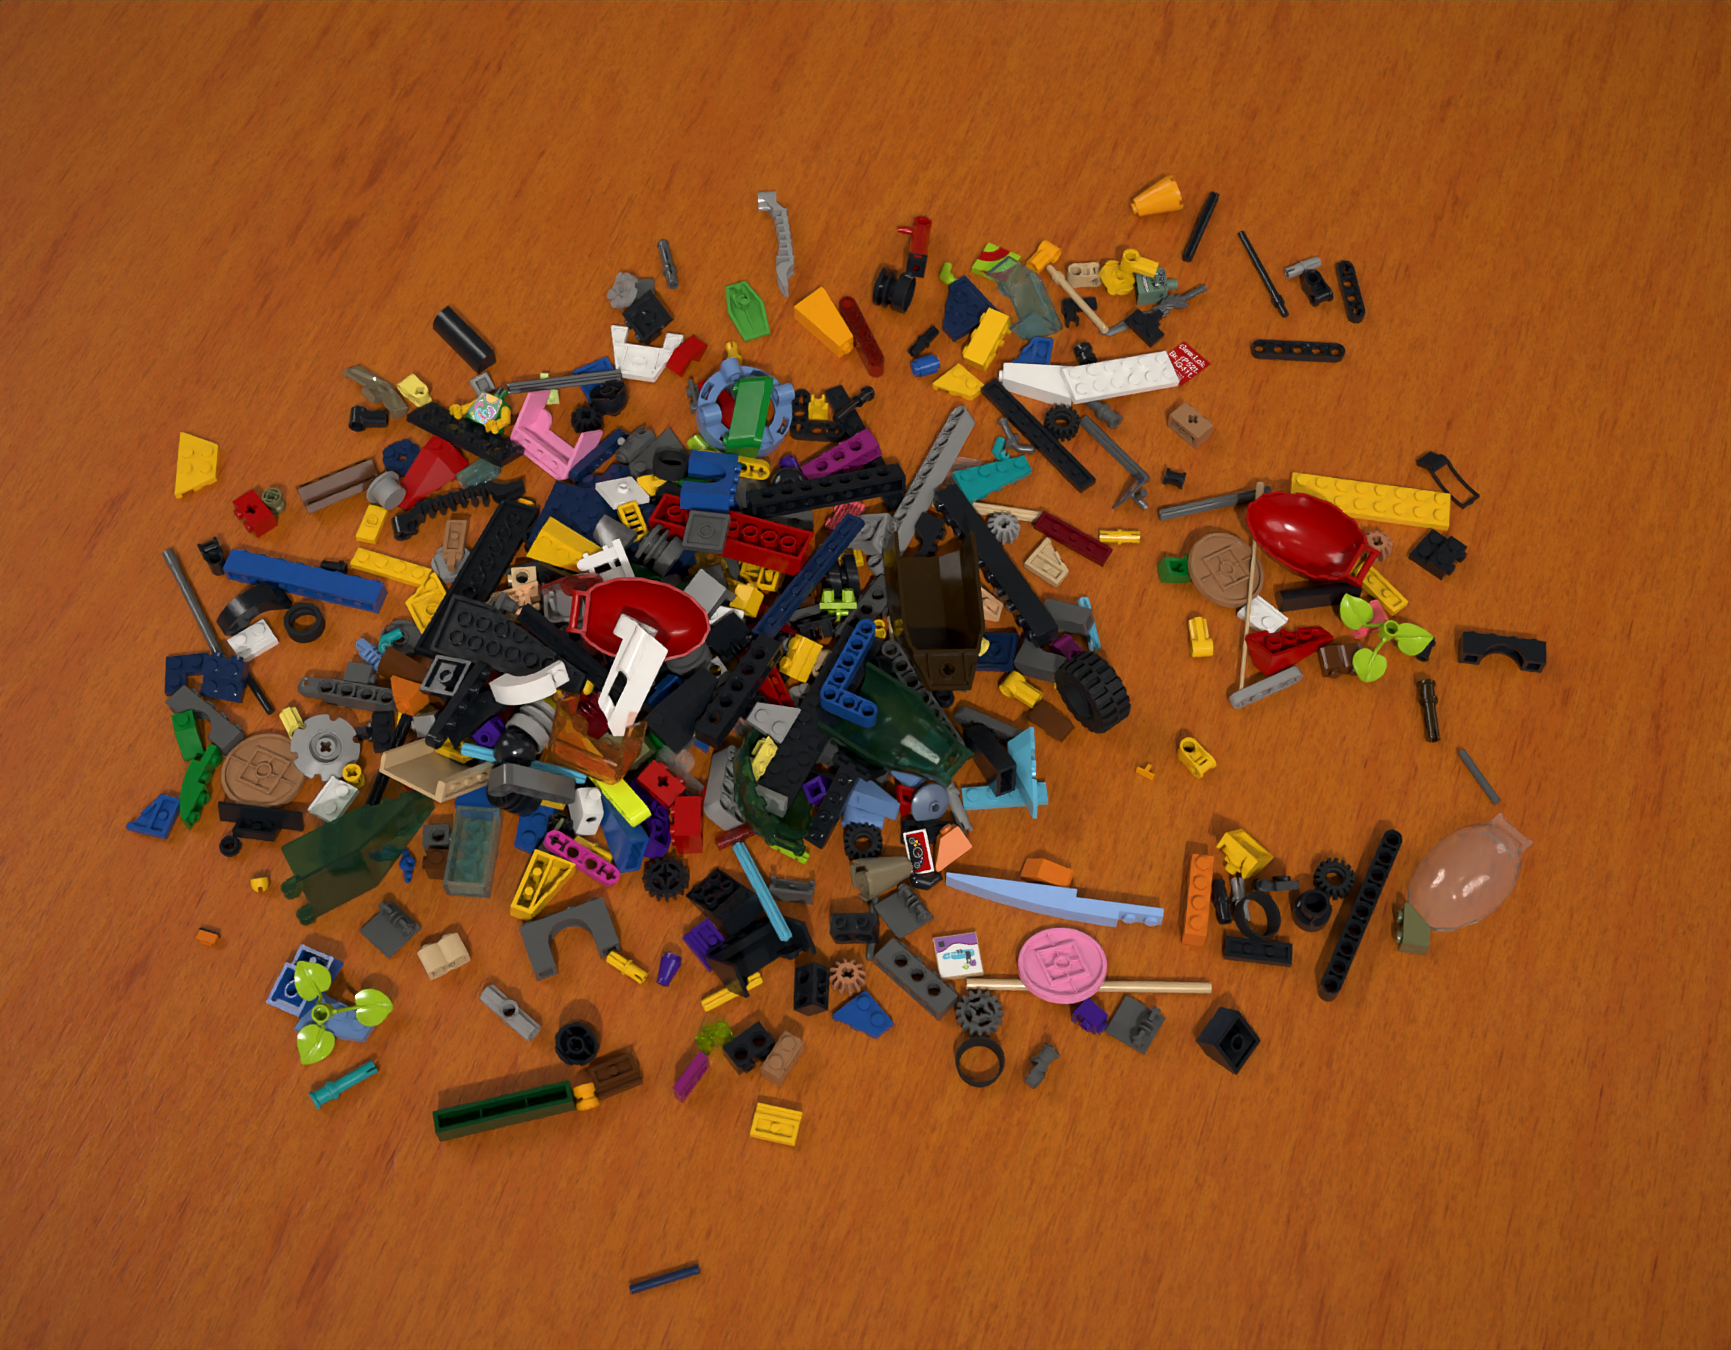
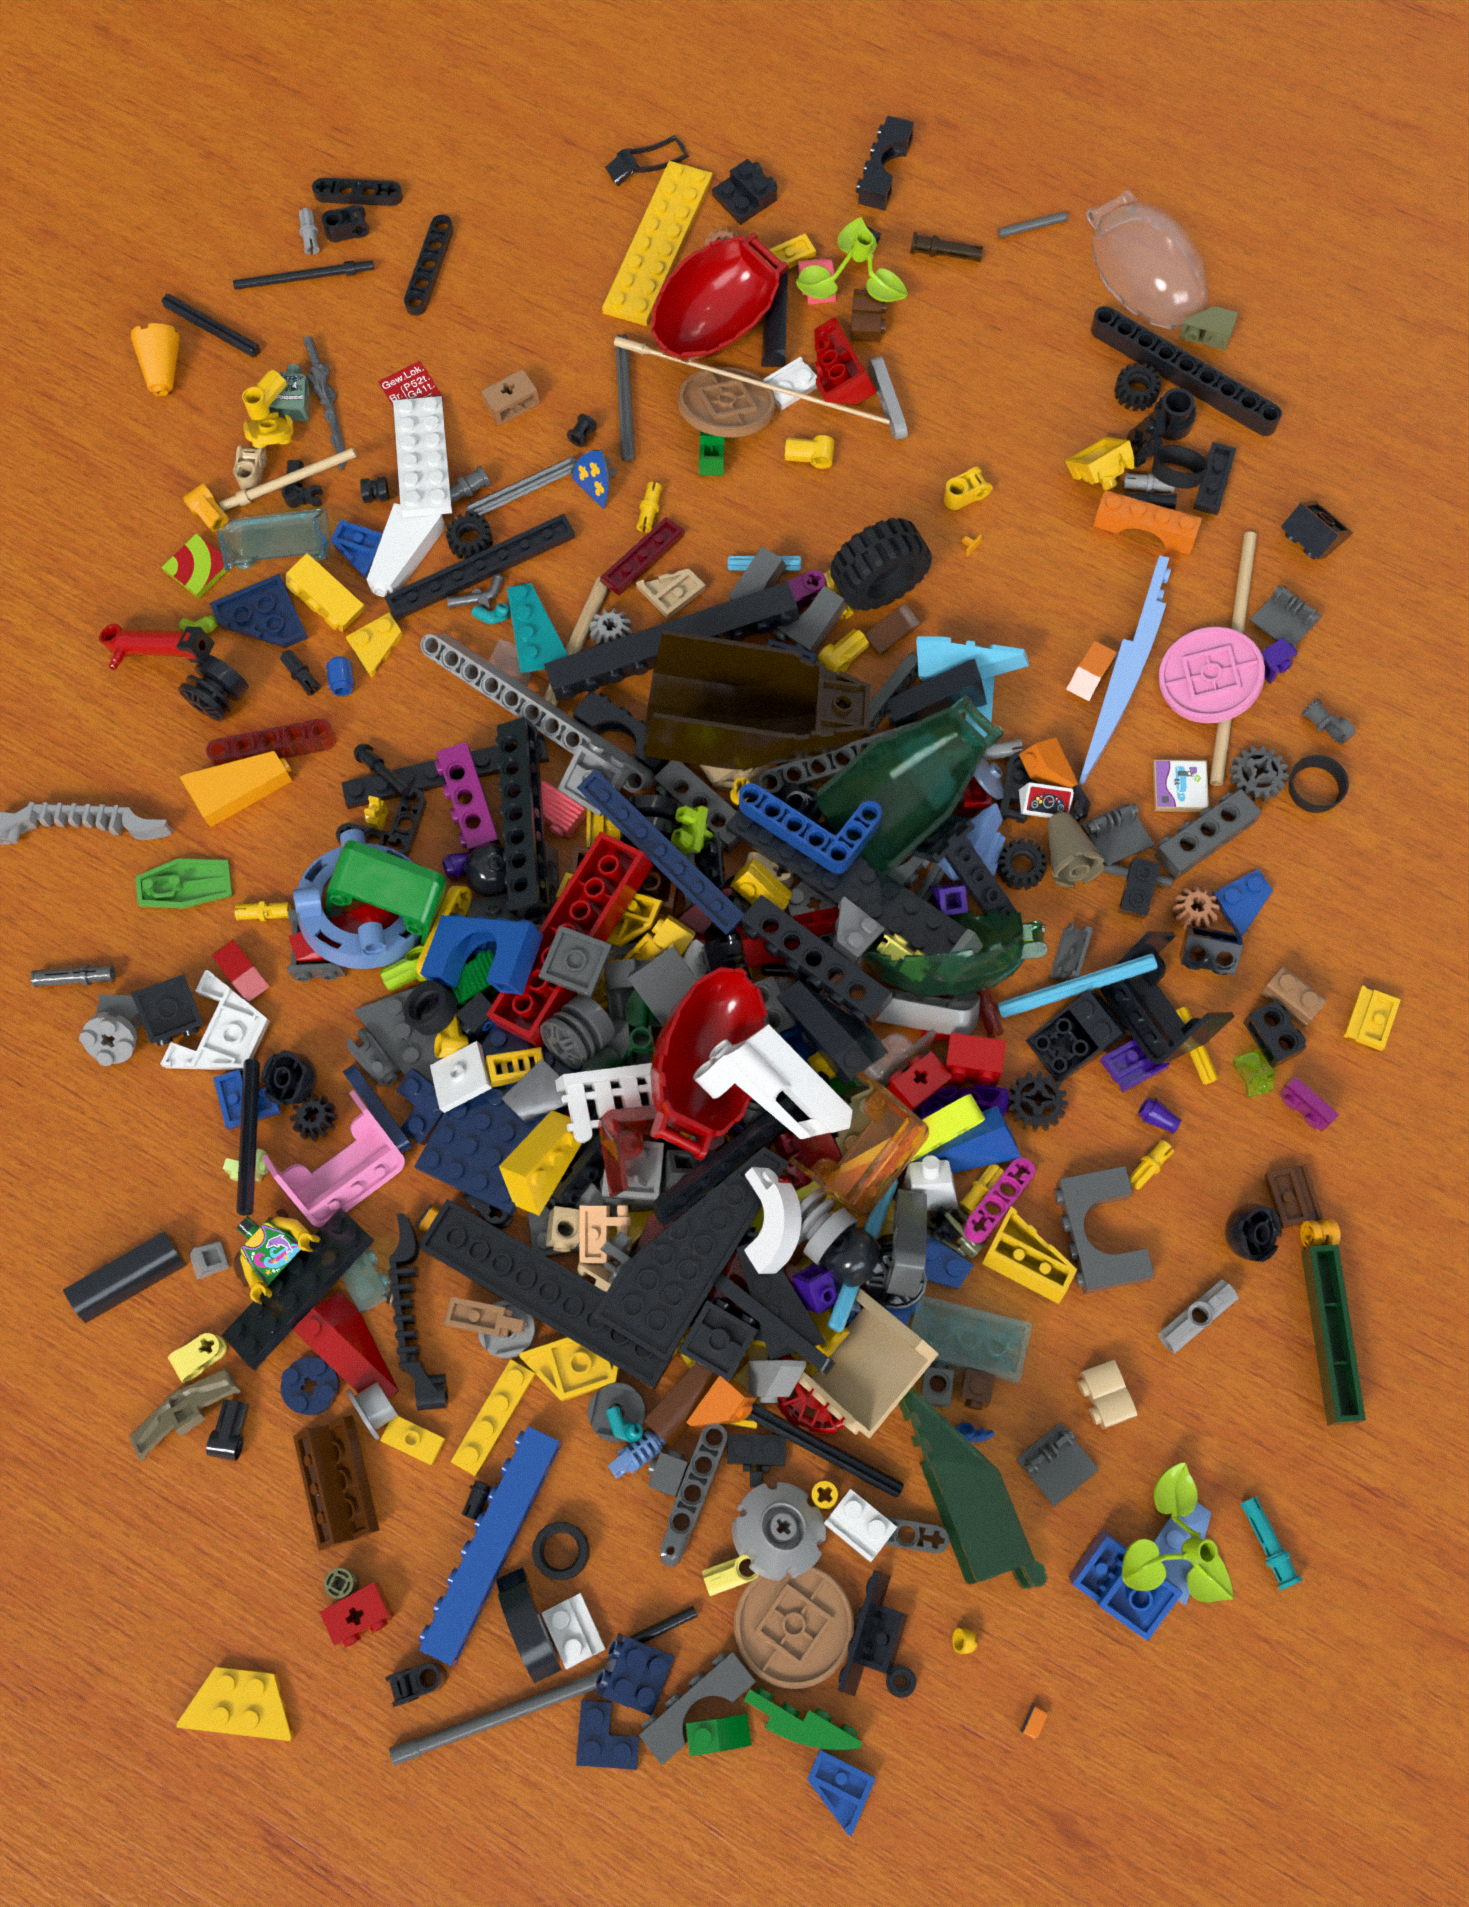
camera: 75 degrees left, 10 degrees up
(1146, 326) = (348, 414): black hinge -> none

